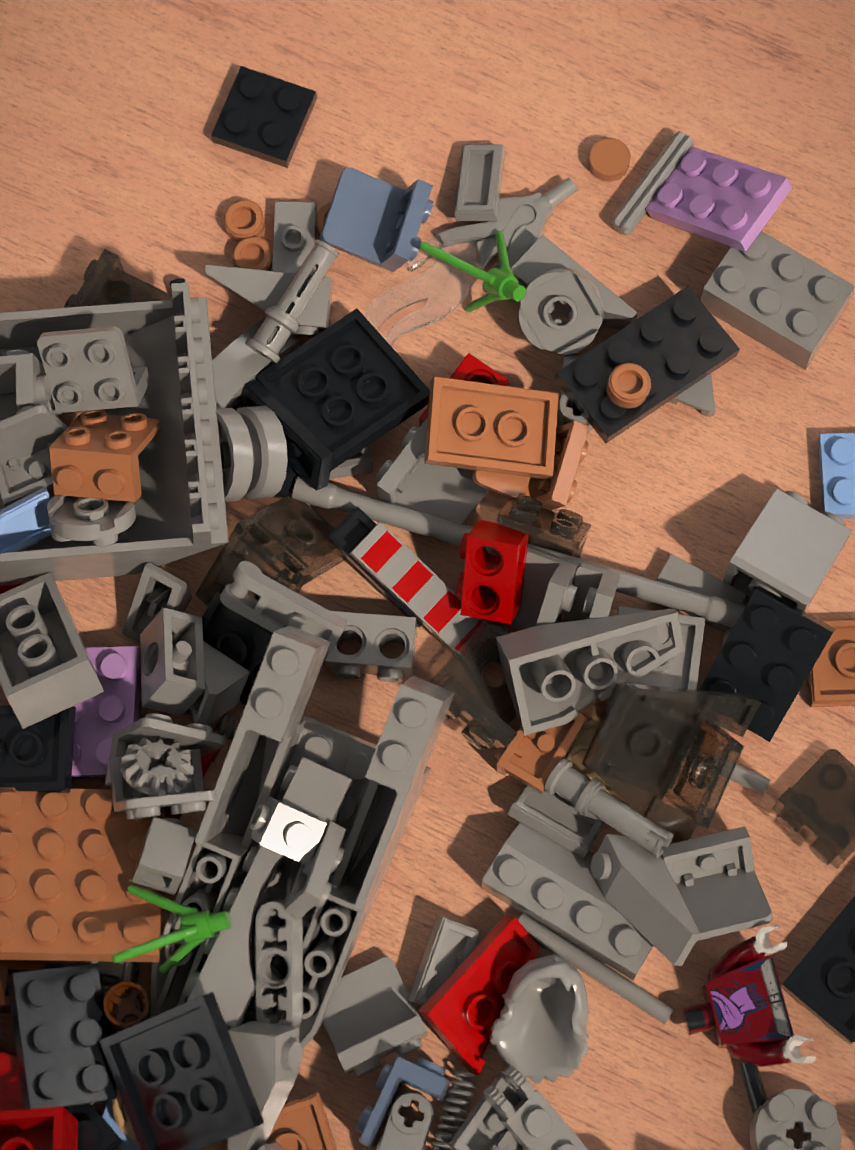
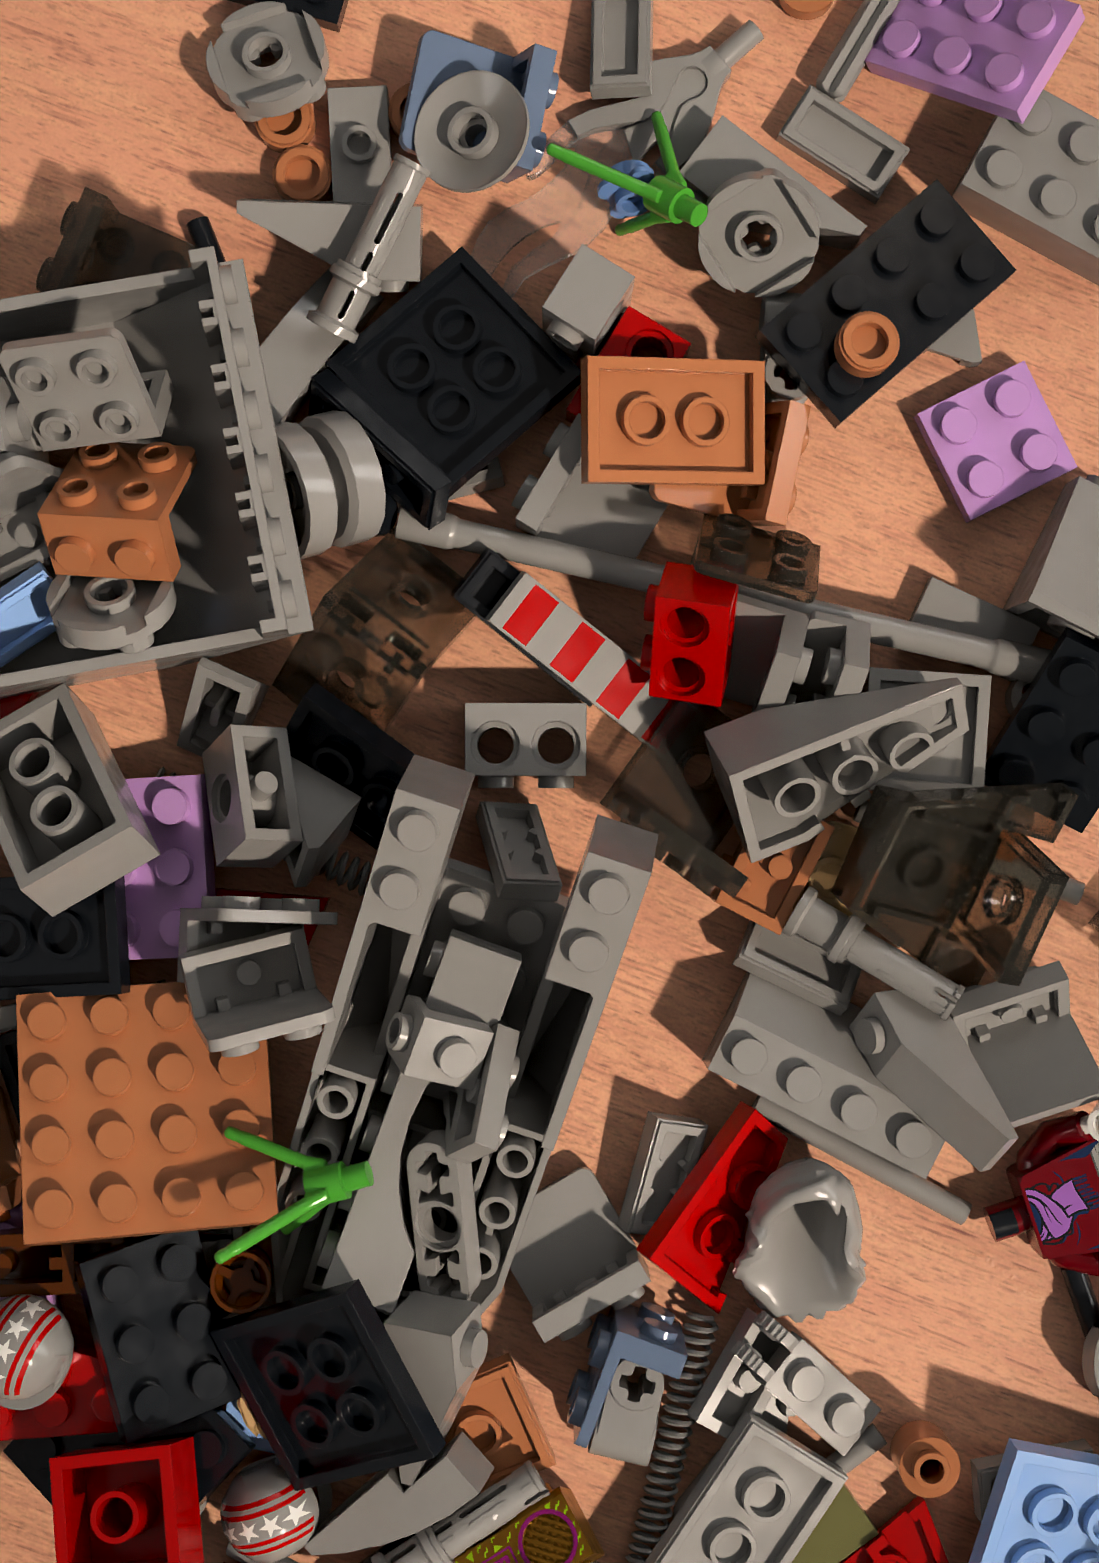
camera: 10 degrees left, 15 degrees up
(160, 780) = (257, 994): light grey gear -> none
(164, 855) = (271, 1085): light grey brick -> none
(240, 198) = (273, 89): none -> light grey plate
(279, 605) = (398, 716): light grey plate -> none
(357, 715) = (518, 851): none -> light grey plate
(364, 220) = (456, 115): none -> light grey dish
(438, 346) = (586, 304): none -> light grey brick
(472, 286) = (621, 201): none -> medium blue plate
(627, 262) = (842, 144): none -> light grey tile
(722, 466) = (995, 441): none -> lavender plate

